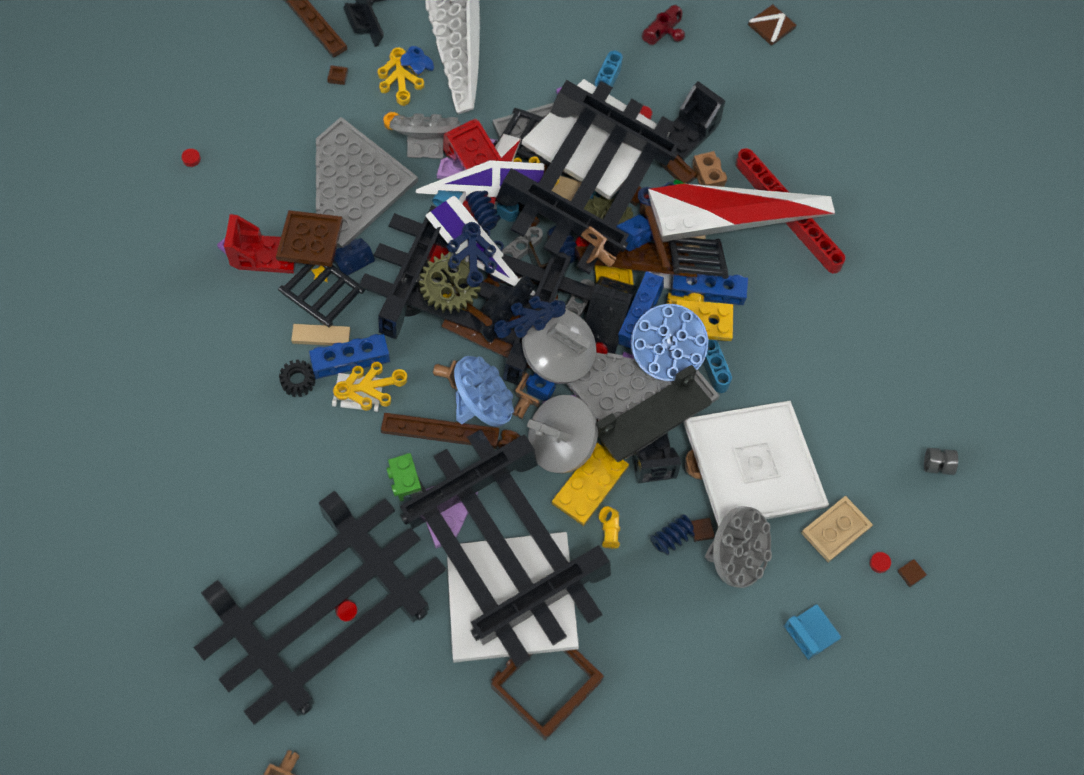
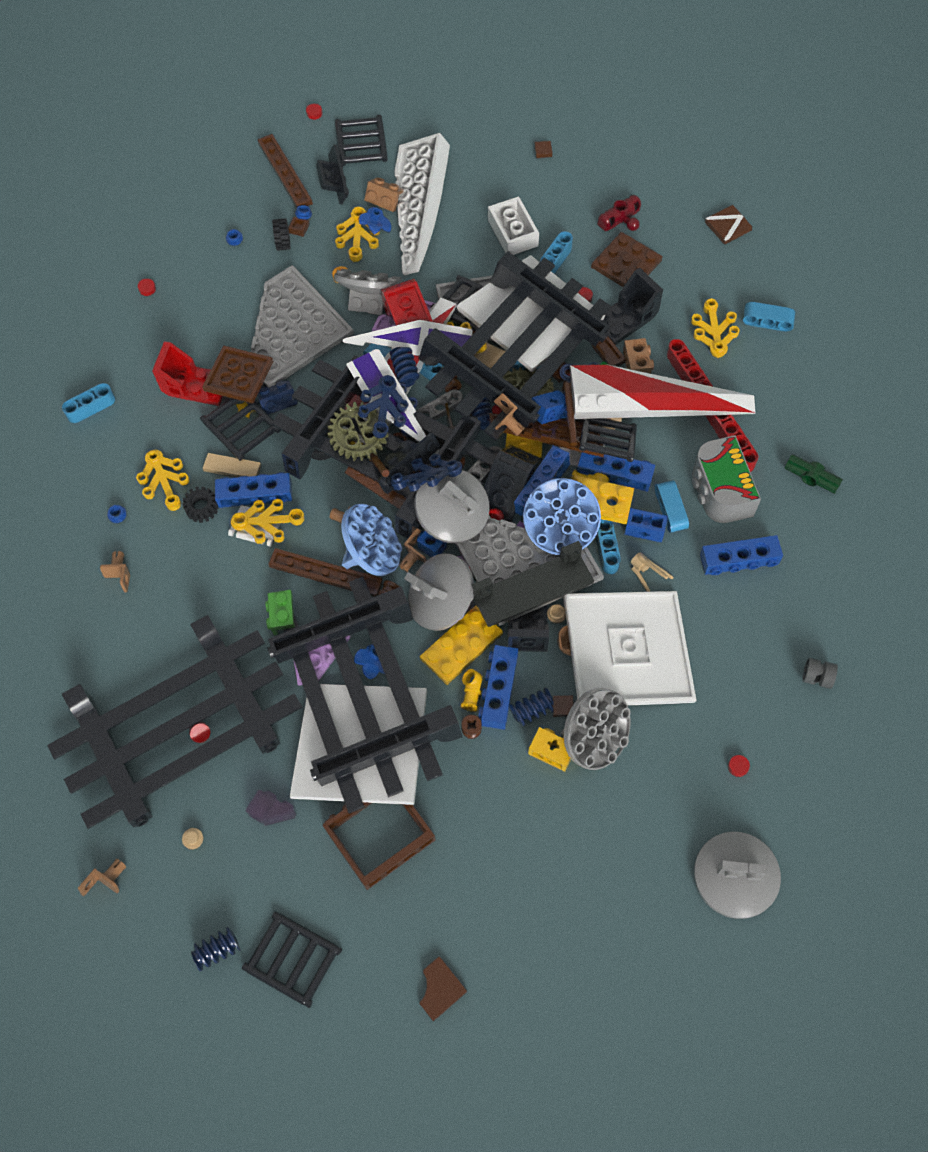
camera: 15 degrees right, 0 degrees up
(152, 295) = (88, 403): none -> dark azure beam
(211, 395) = (115, 509): none -> blue plate
(224, 457) = (117, 570): none -> medium nougat bracket
(251, 354) = (161, 476): none -> yellow plant
(272, 90) = (234, 237): none -> blue plate
(323, 86) = (281, 234): none -> black tyre
(340, 59) = (303, 212): none -> blue plate
(361, 718) = (192, 838): none -> tan plate
(419, 31) = (383, 194): none -> medium nougat bracket
(433, 677) = (268, 810): none -> clear purple slope
(504, 513) = (369, 660): none -> blue plate
(560, 51) = (513, 226): none -> white brick
(617, 568) = (471, 731): none -> reddish brown wheel
(639, 490) = (498, 717): none -> blue brick
(677, 73) = (623, 258): none -> reddish brown plate
(678, 439) = (556, 613): none -> tan plate
(690, 575) = (541, 750): none -> yellow brick
(750, 339) = (646, 525): none -> blue brick
(752, 377) = (642, 563): none -> tan plant
(770, 317) = (671, 506): none -> dark azure beam
(778, 133) = (714, 329): none -> yellow plant
(812, 631) = (655, 824): dark azure bracket -> none
(818, 285) = (724, 481): none -> brick
(828, 114) = (769, 316): none -> dark azure beam
(836, 529) = (700, 725): tan plate -> none
(870, 344) = (768, 546): none -> blue brick
(898, 667) = (737, 875): none -> light grey bracket
(899, 266) = (813, 473): none -> dark green piece
(912, 573) = (769, 781): reddish brown tile -> none

